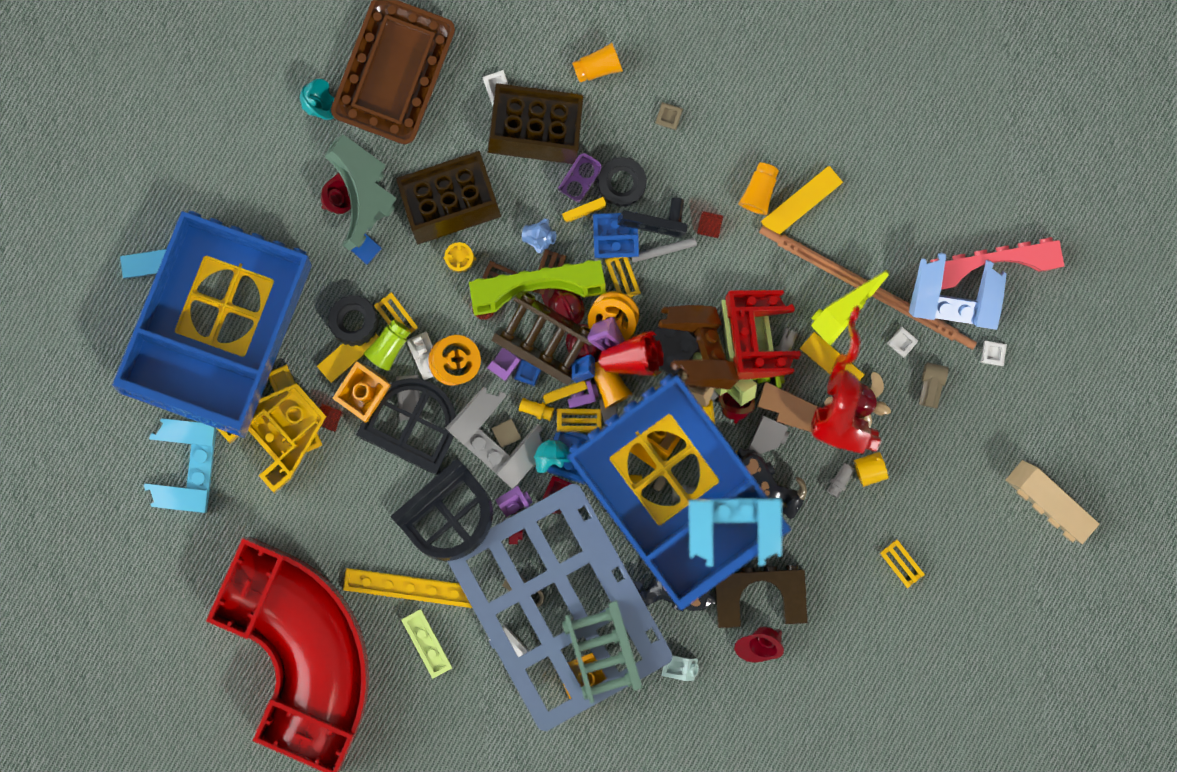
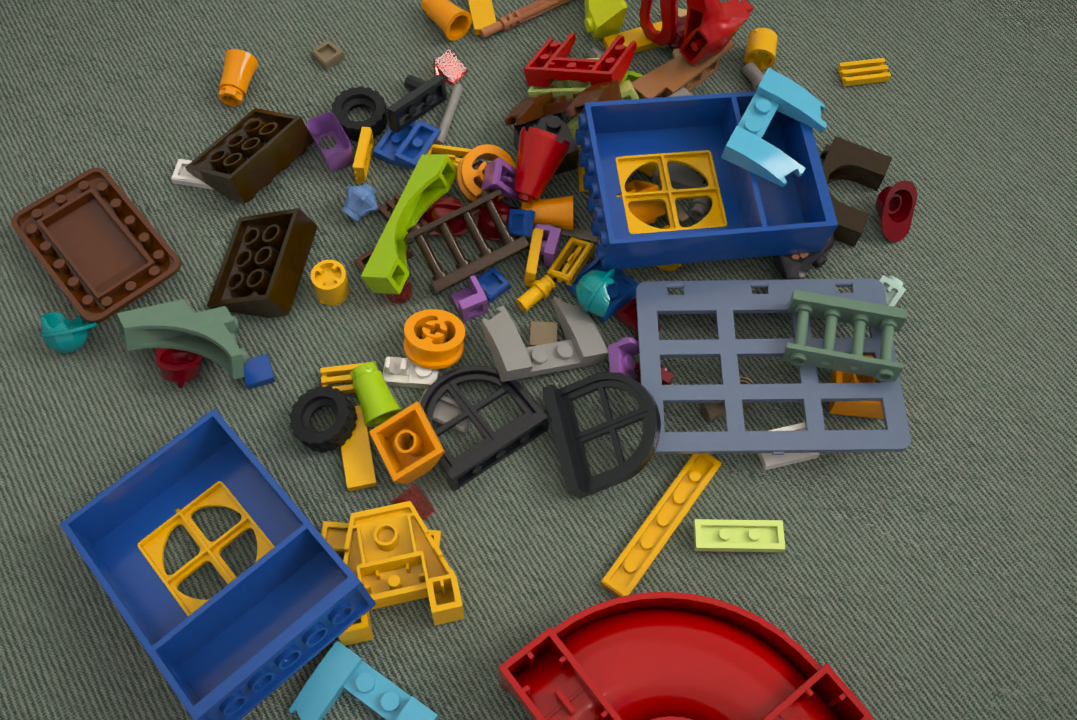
camera: 65 degrees left, 25 degrees down
(141, 264) = (93, 625): medium azure tile -> none

